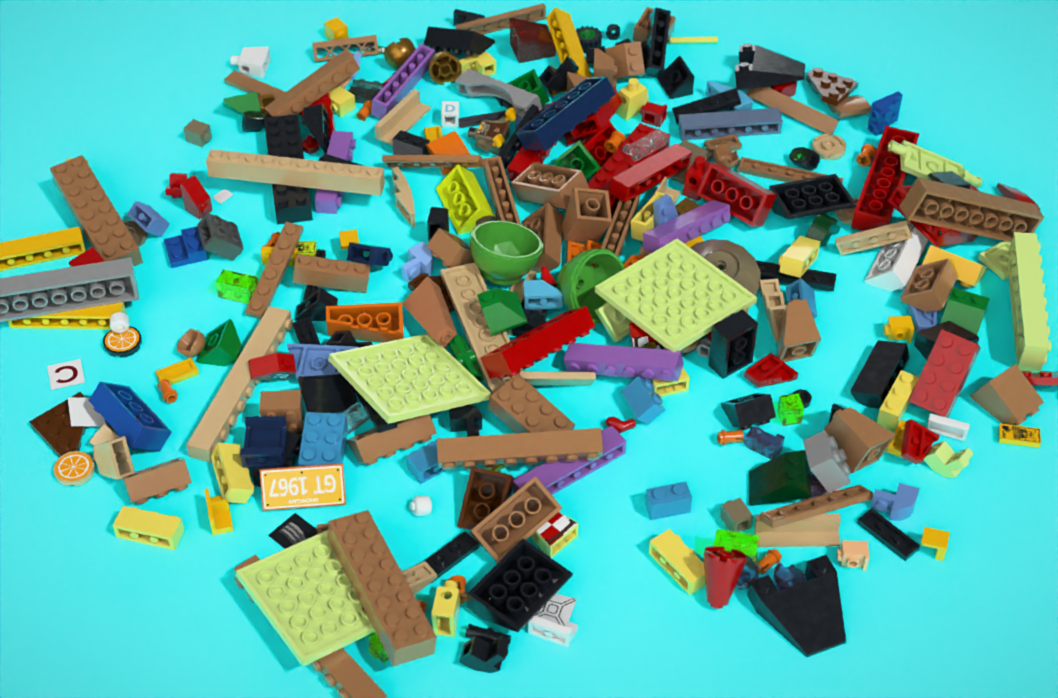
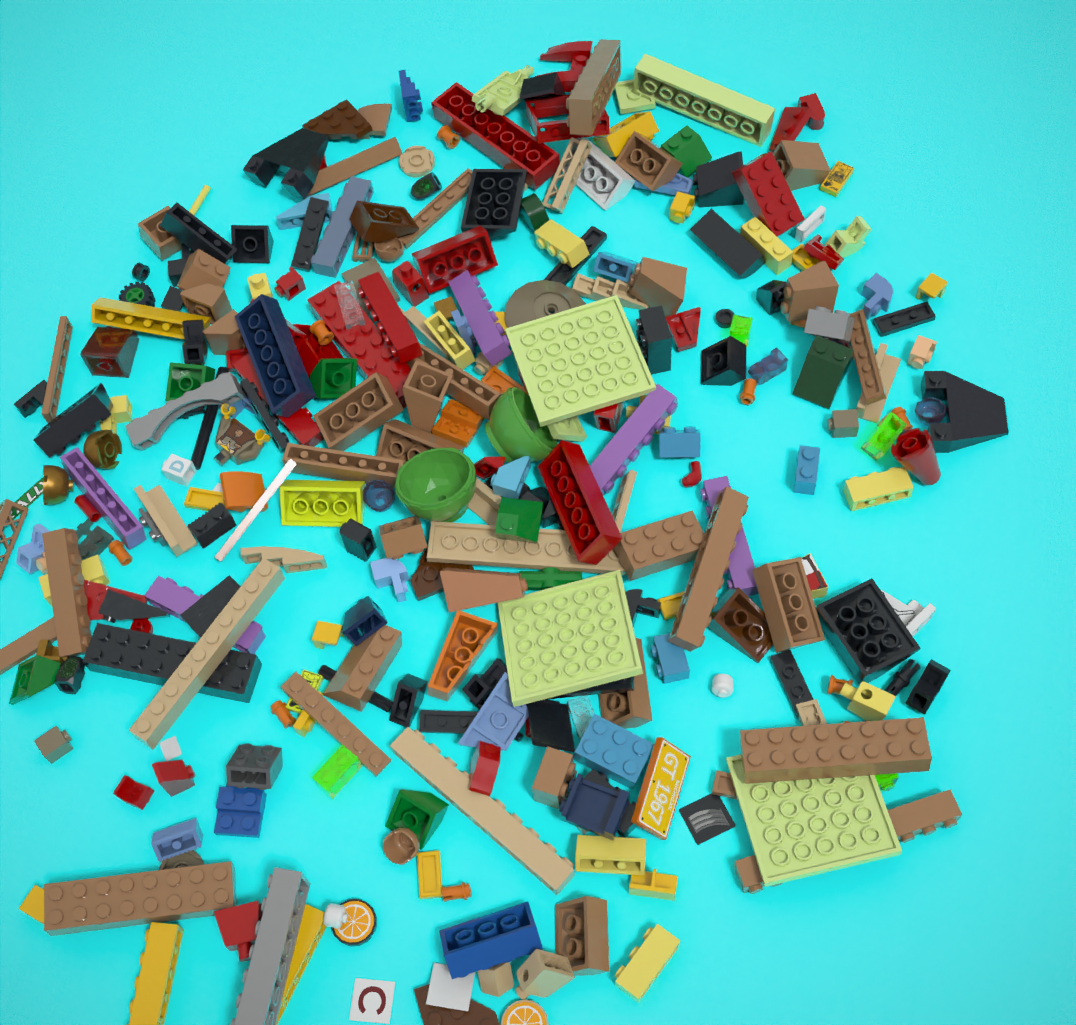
camera: 60 degrees left, 15 degrees up
(745, 140) = (381, 221): none -> reddish brown slope

